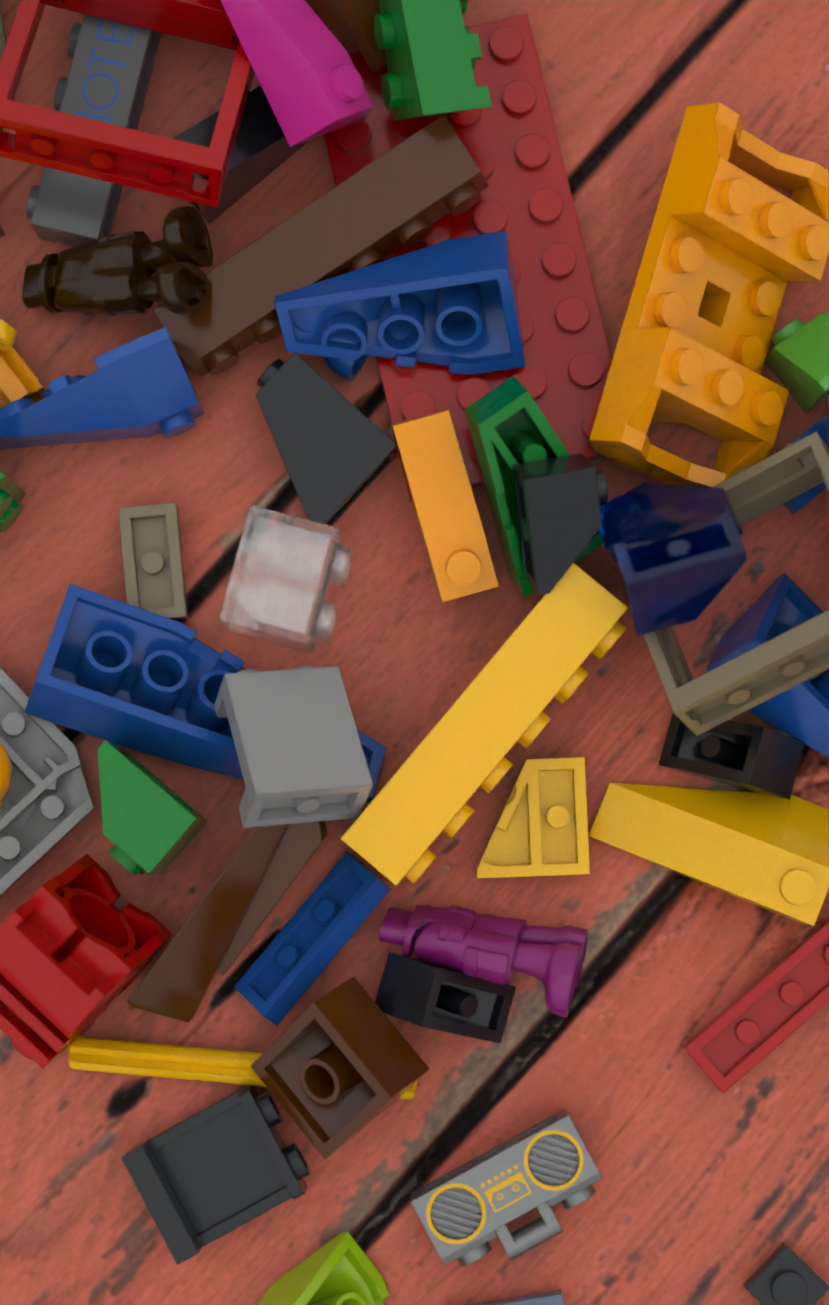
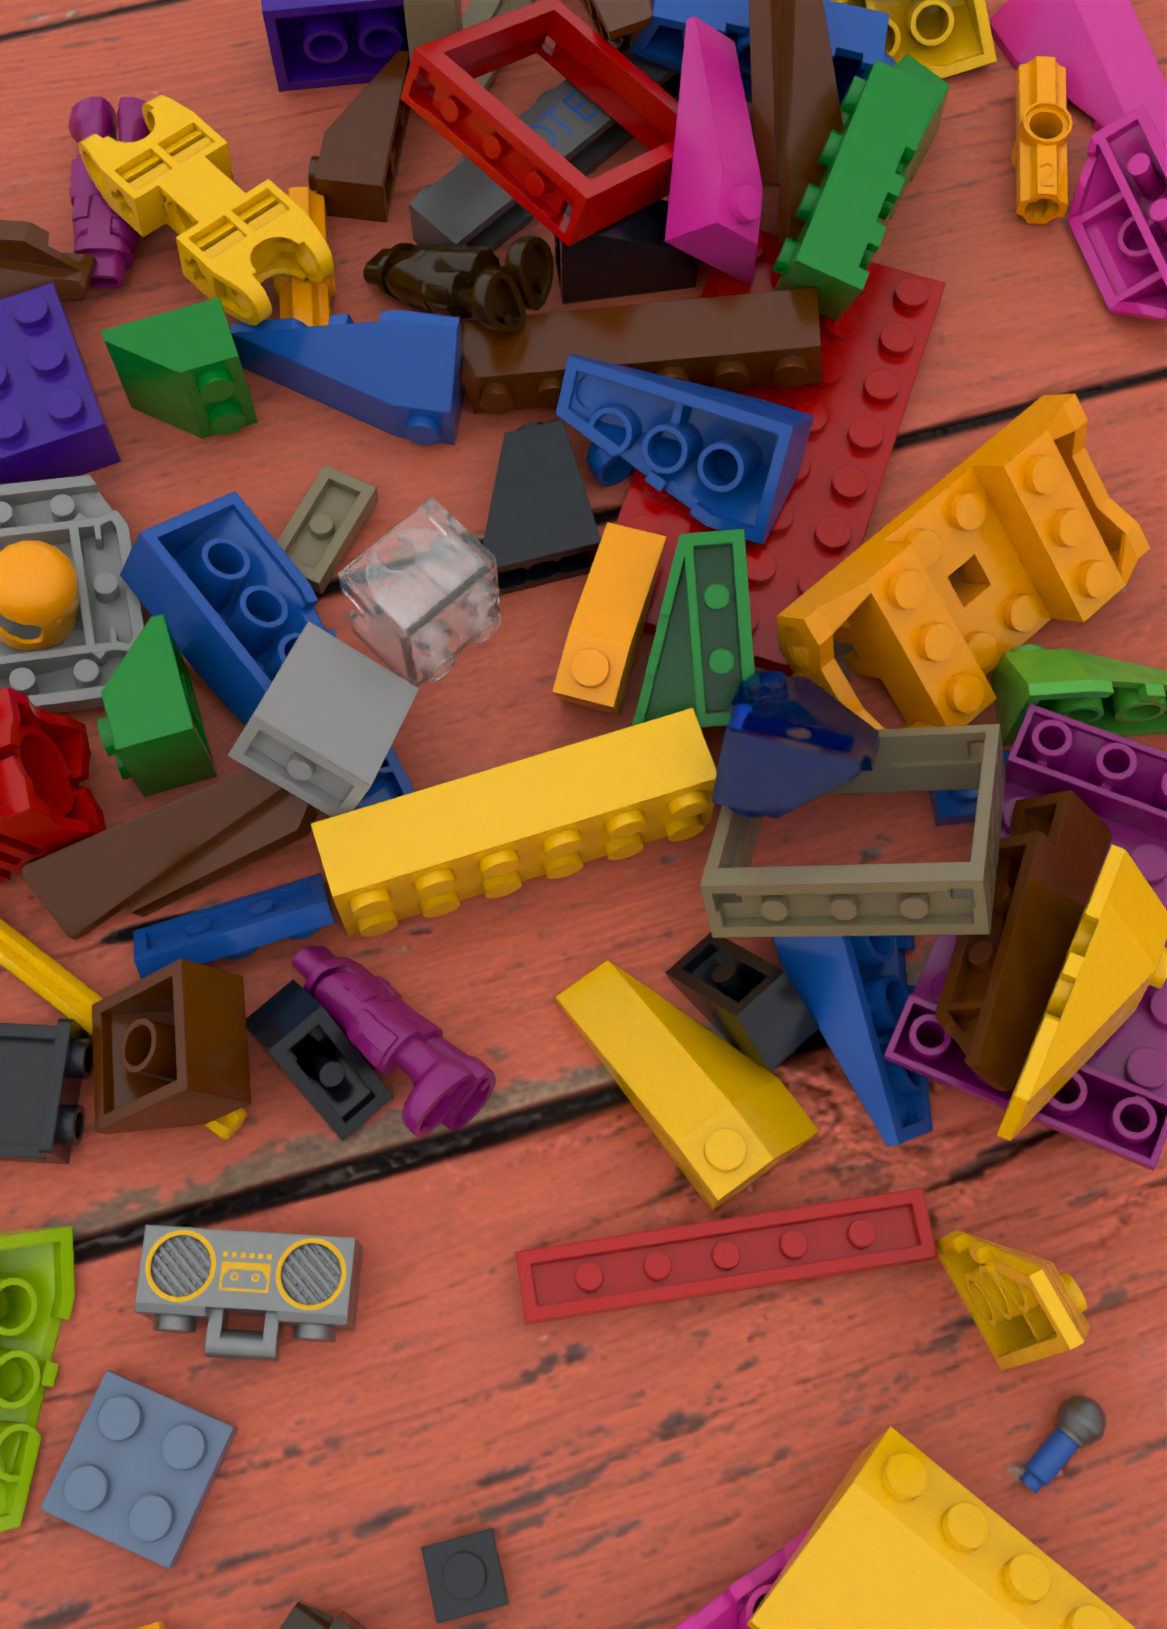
camera: 30 degrees right, 15 degrees down
(542, 823) = (517, 956): yellow wing -> none
(556, 514) = (705, 654): black slope -> none

